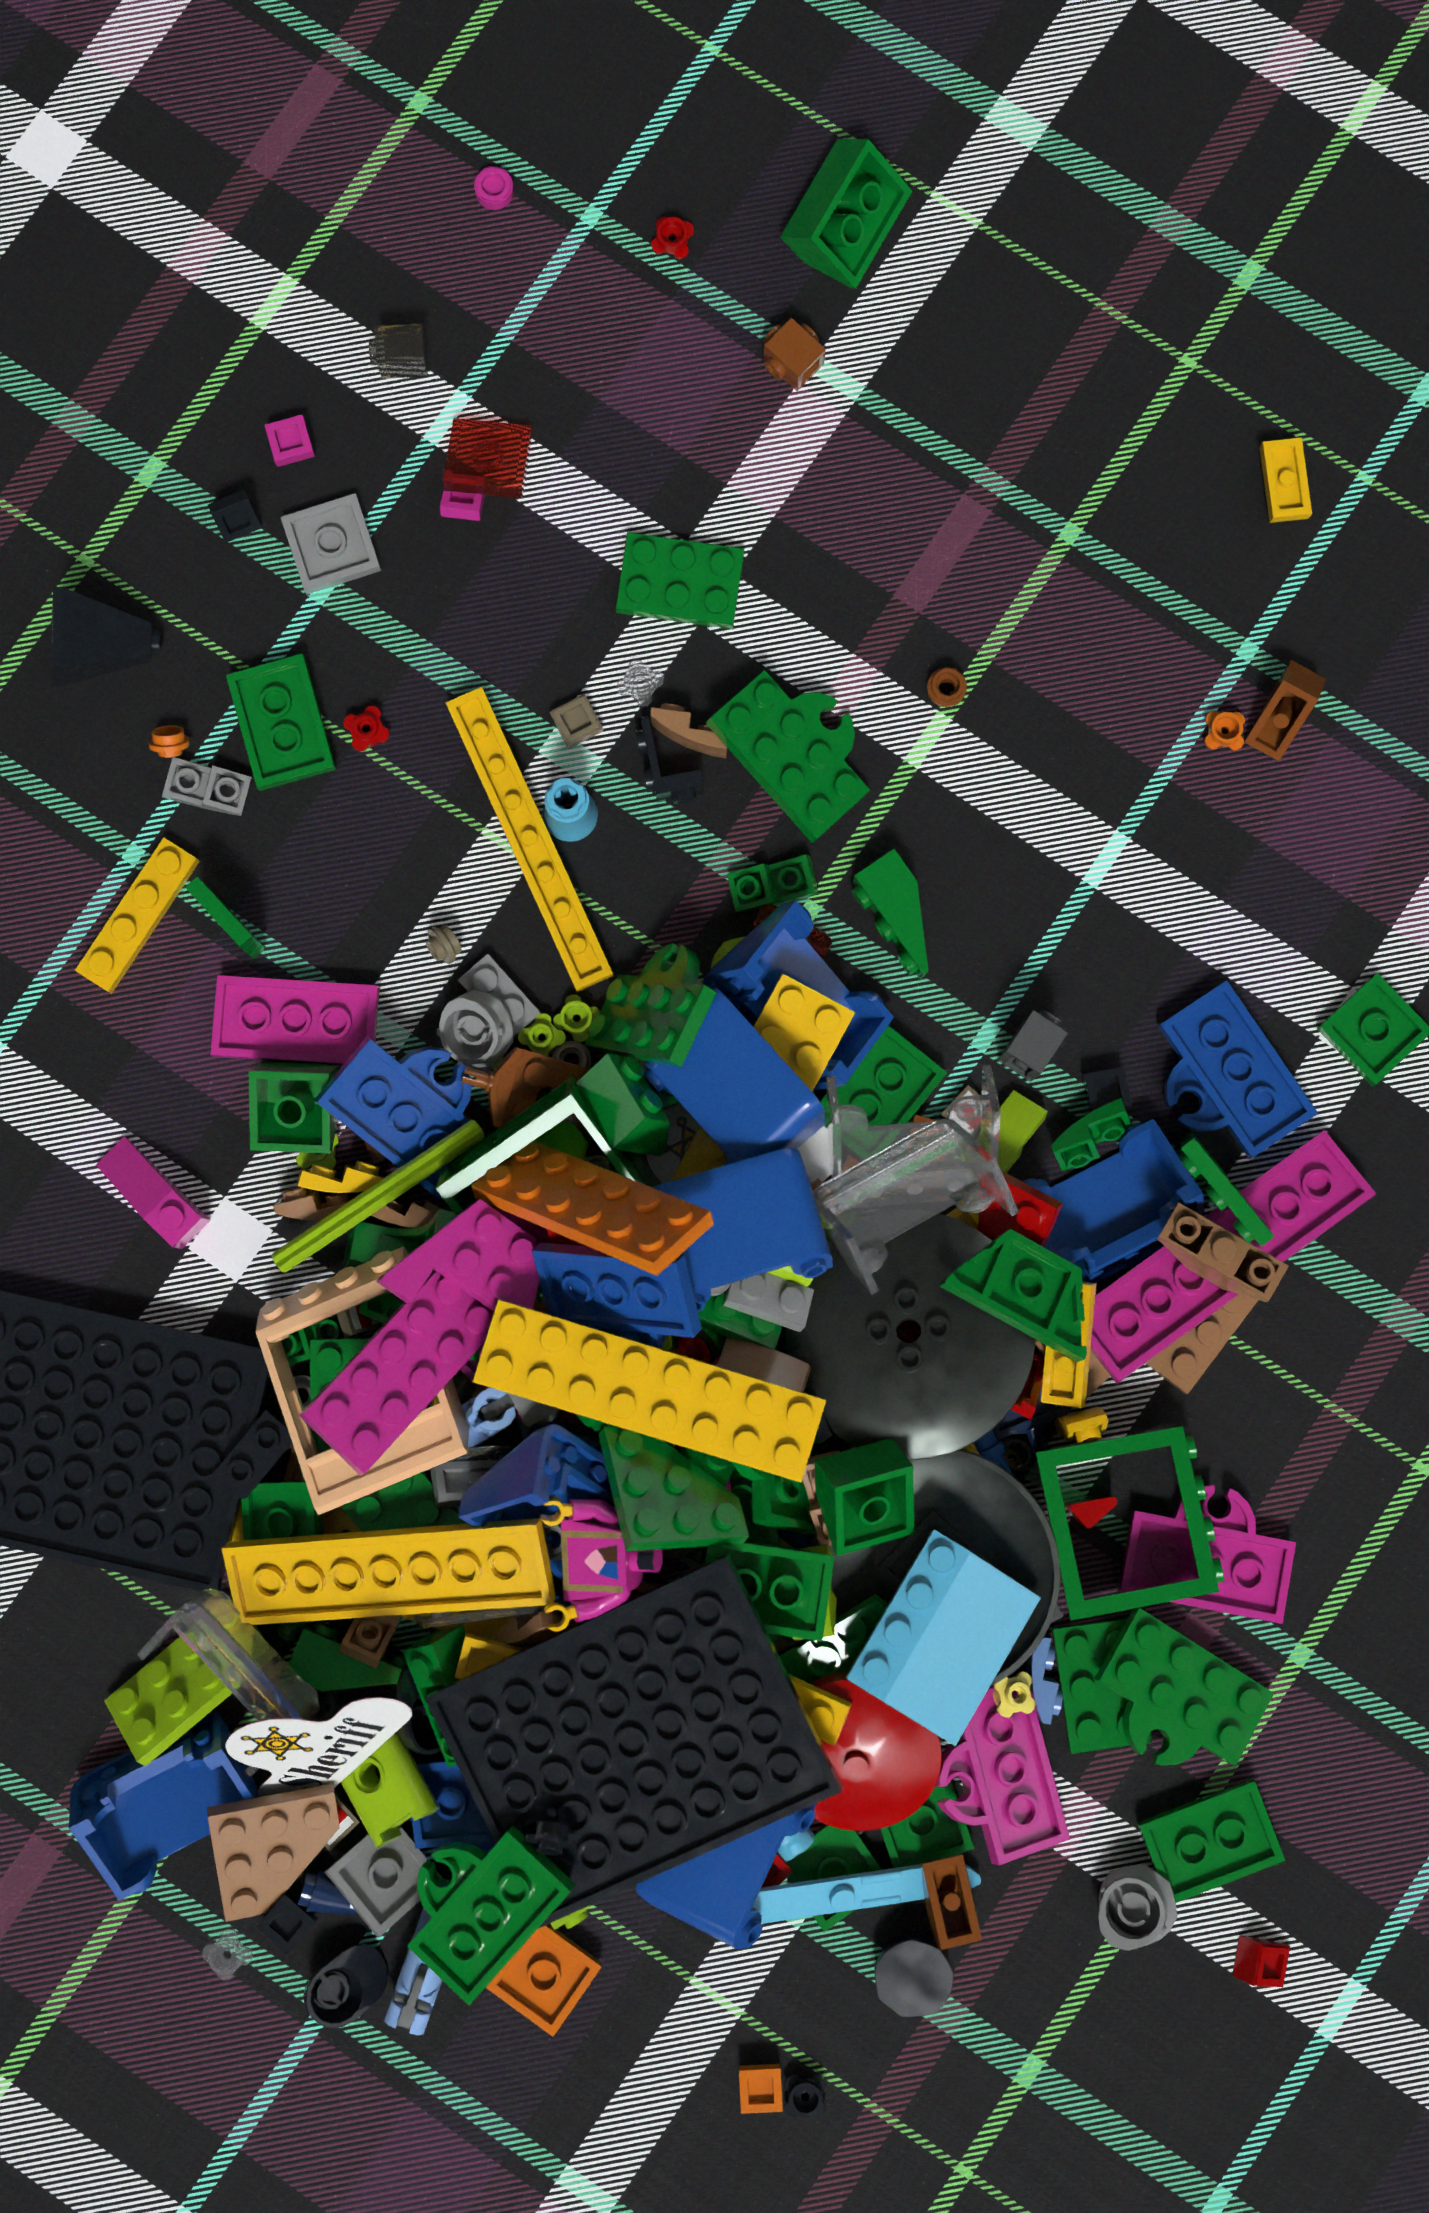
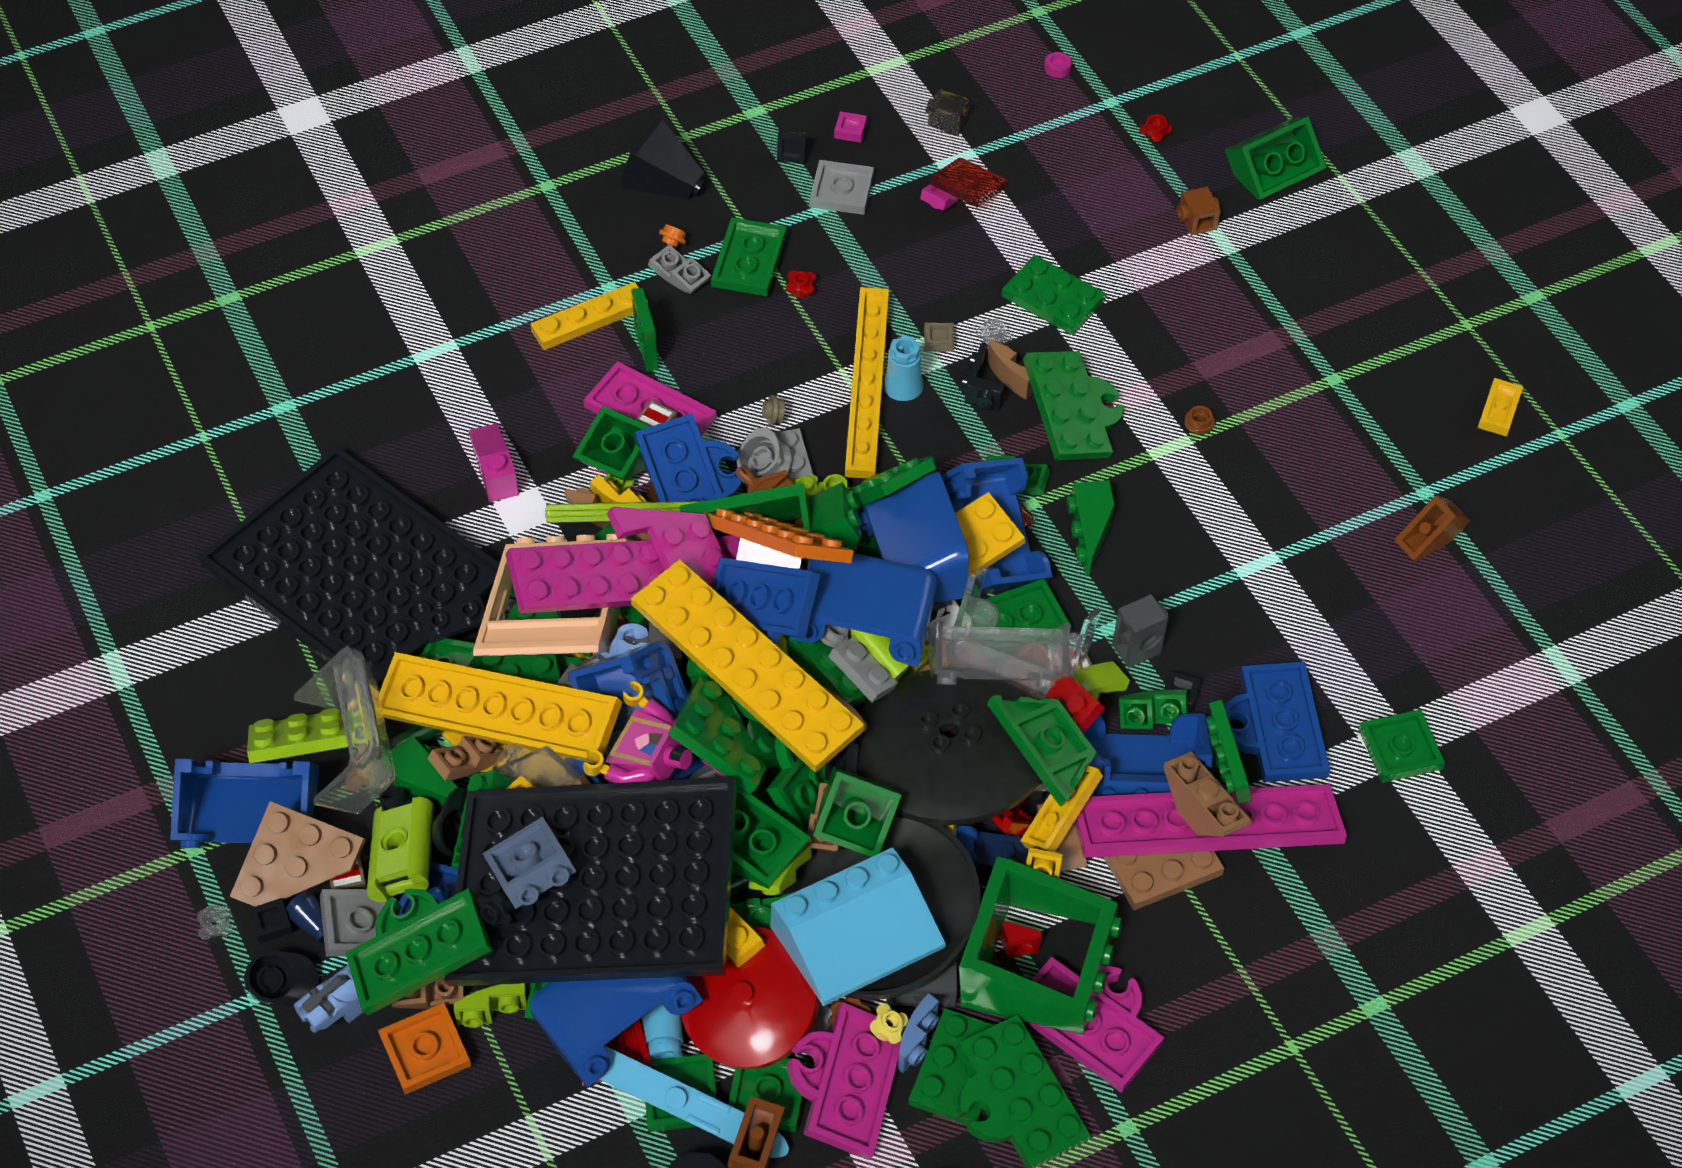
camera: 30 degrees right, 30 degrees down
(313, 1752) = (376, 782): white sticker -> none
(316, 1042) = (656, 414): none -> tile
(556, 1770) = (529, 863): none -> sand blue plate
(1229, 720) = (1383, 518): orange plate -> none

